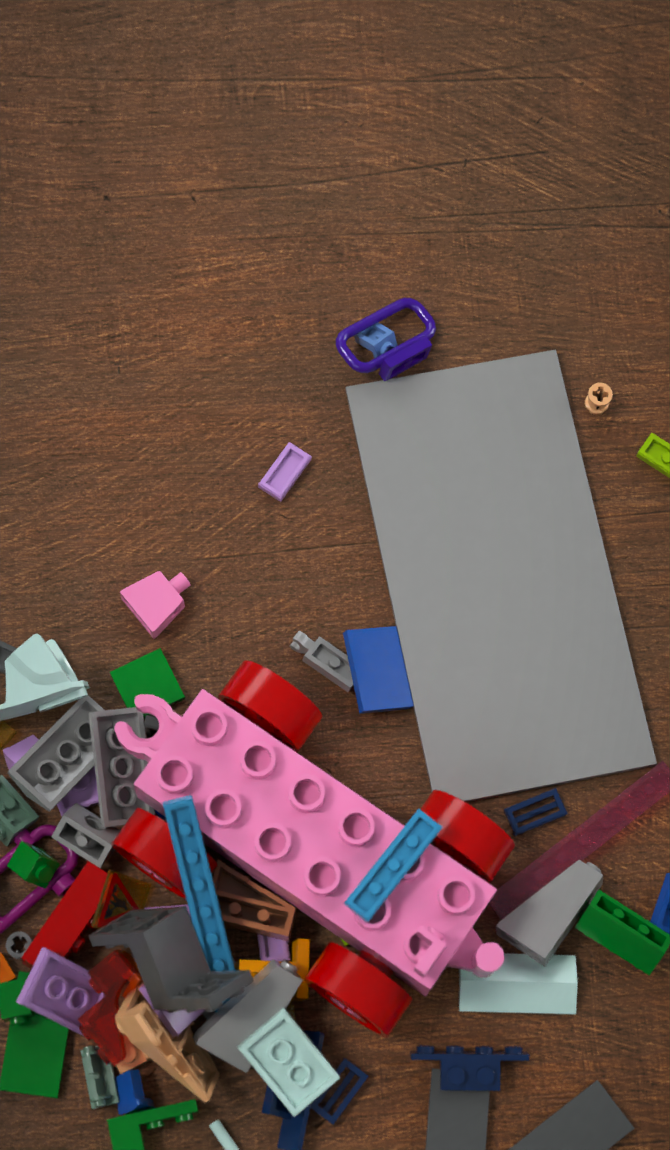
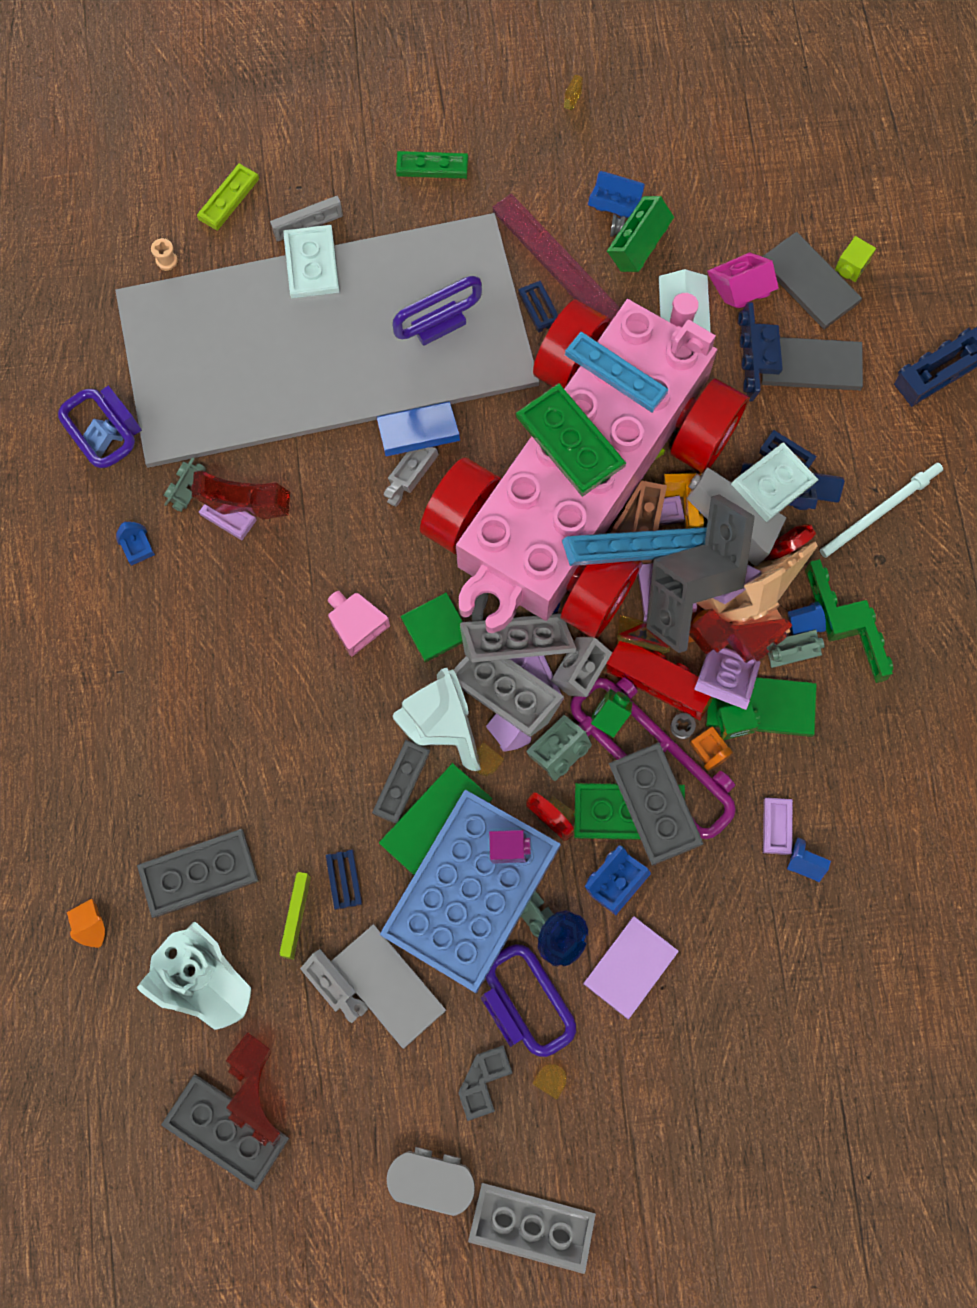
camera: 85 degrees left, 0 degrees up
(221, 1080) = (791, 541): none -> red tile
(256, 379) = (134, 542): none -> blue tile
(296, 480) = (229, 497): none -> clear red arch
(311, 421) = (179, 493): none -> sand green hinge
(311, 810) = (570, 439): none -> green tile
(509, 690) = (442, 320): none -> dark purple bar
(549, 915) = (625, 281): light grey slope -> none
(566, 1055) = (744, 279): none -> dark pink slope
(589, 555) = (311, 261): none -> light aqua tile
(640, 906) = (617, 224): none -> dark grey bush
(645, 551) = (308, 217): none -> light grey tile

